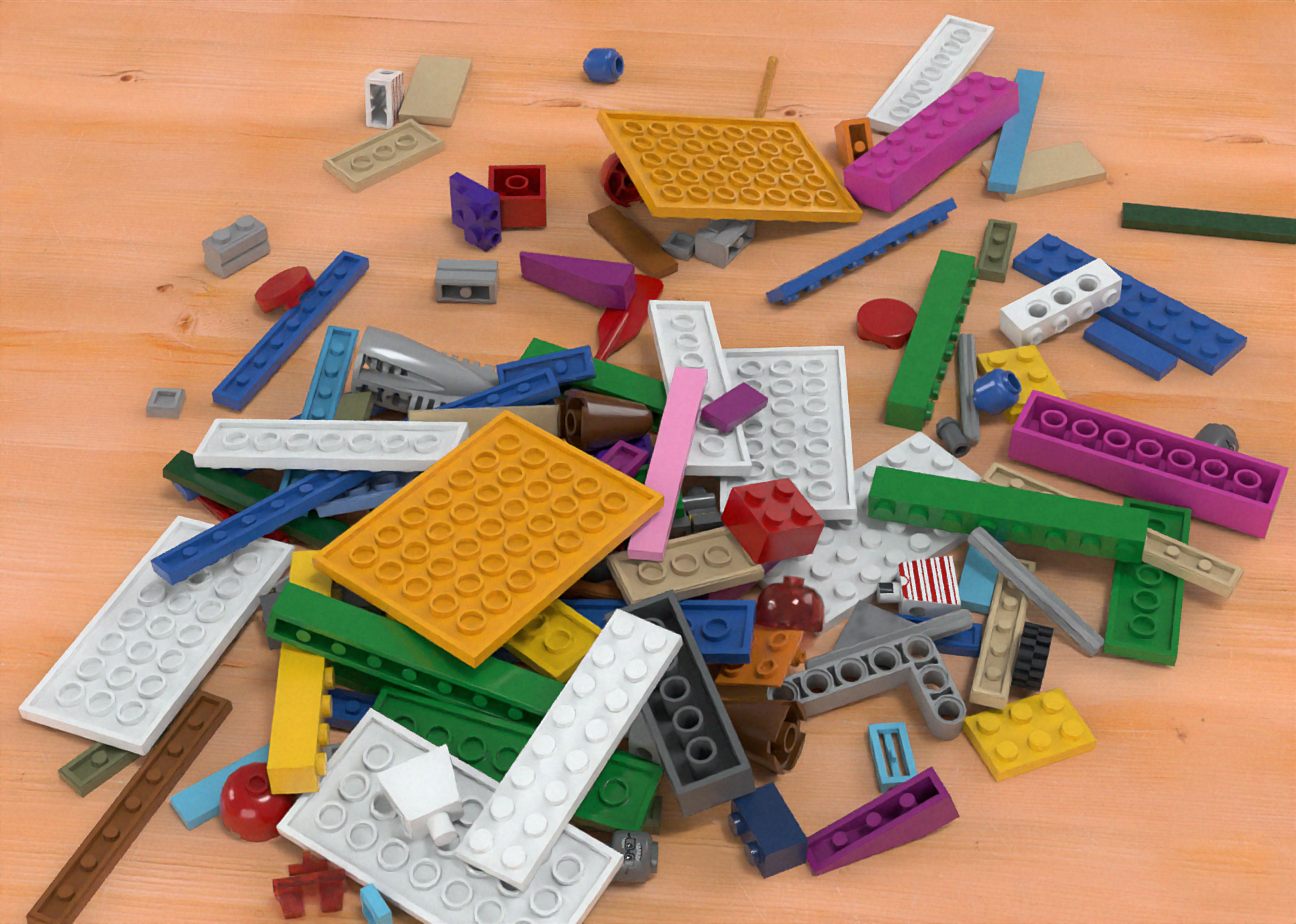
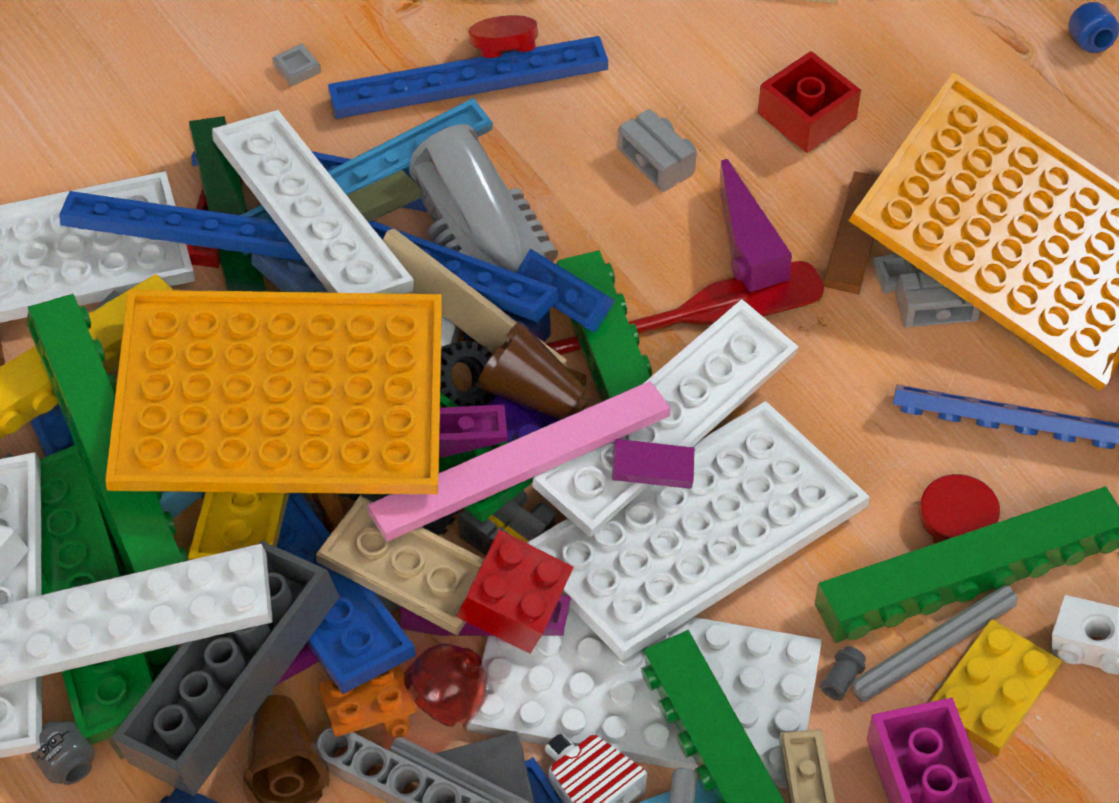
camera: 50 degrees right, 10 degrees up
(475, 211) = (742, 90): dark purple plate -> none
(996, 391) = (931, 668): blue head -> none

